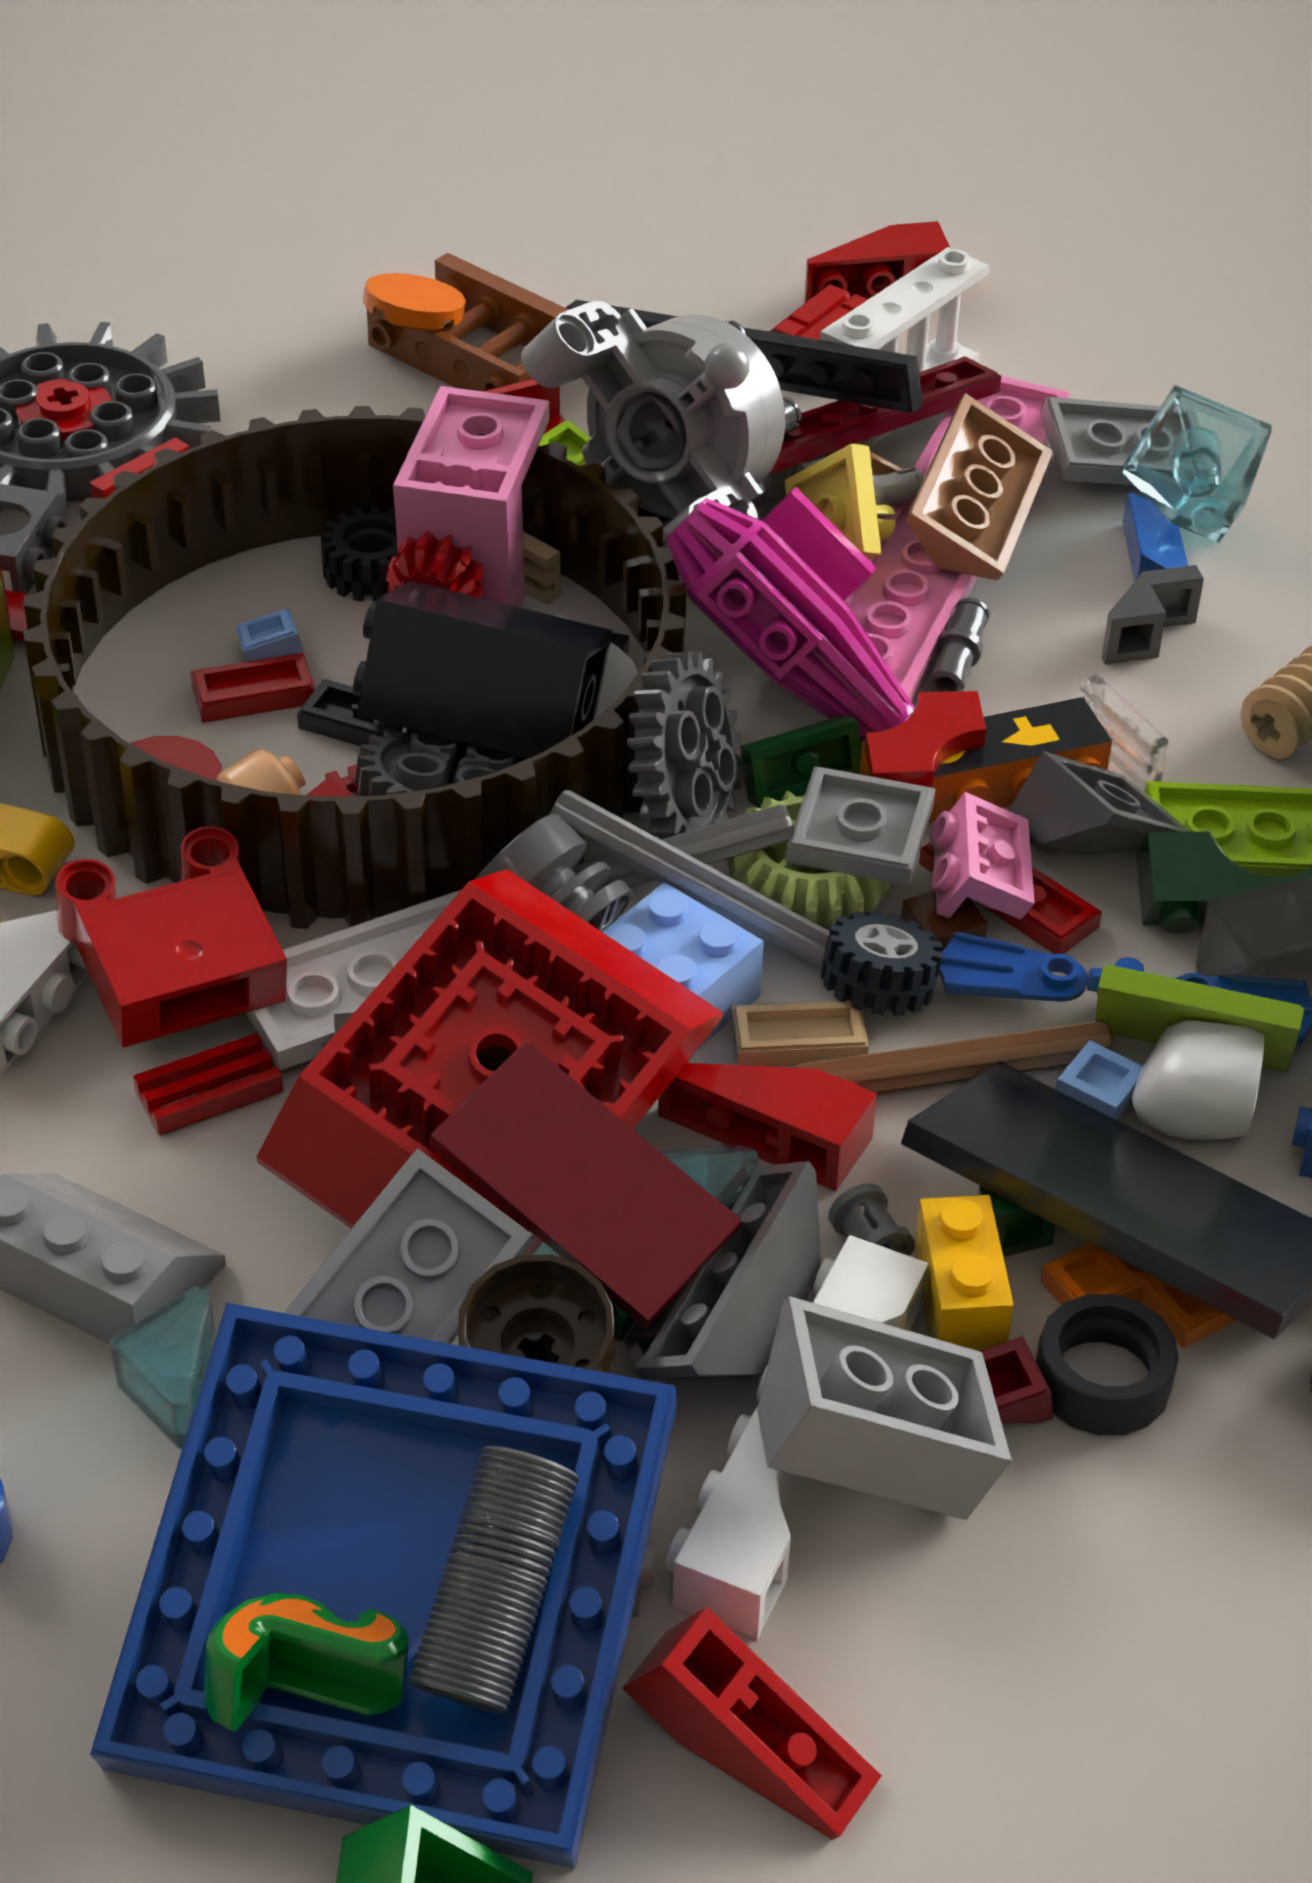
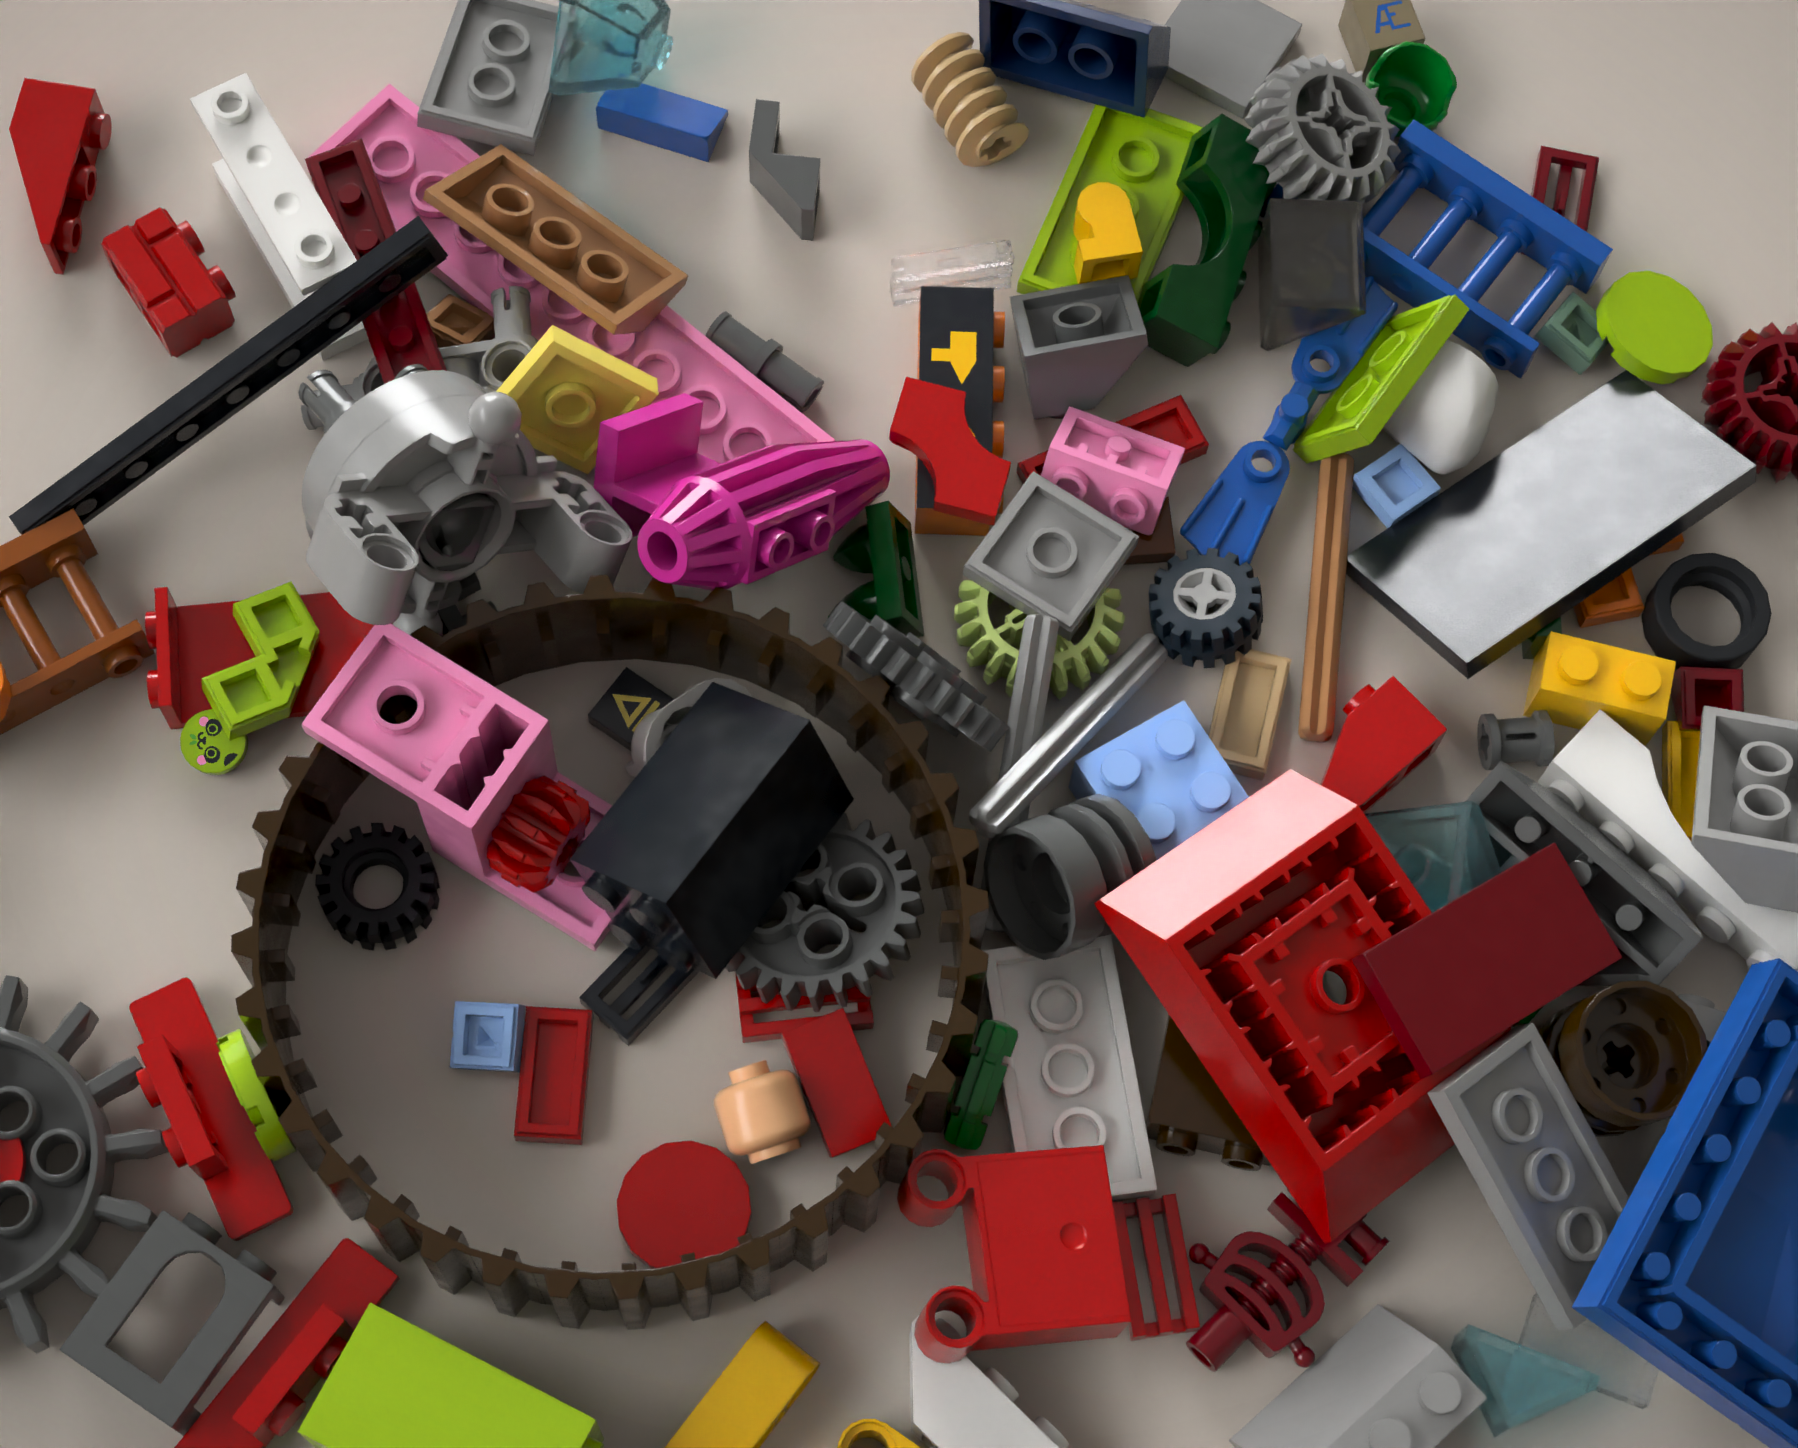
camera: 75 degrees left, 25 degrees up
(201, 1179) = (1246, 1309): none -> dark red torso
(334, 914) = (980, 1084): none -> green axle
(1224, 805) = (1105, 234): none -> yellow leg

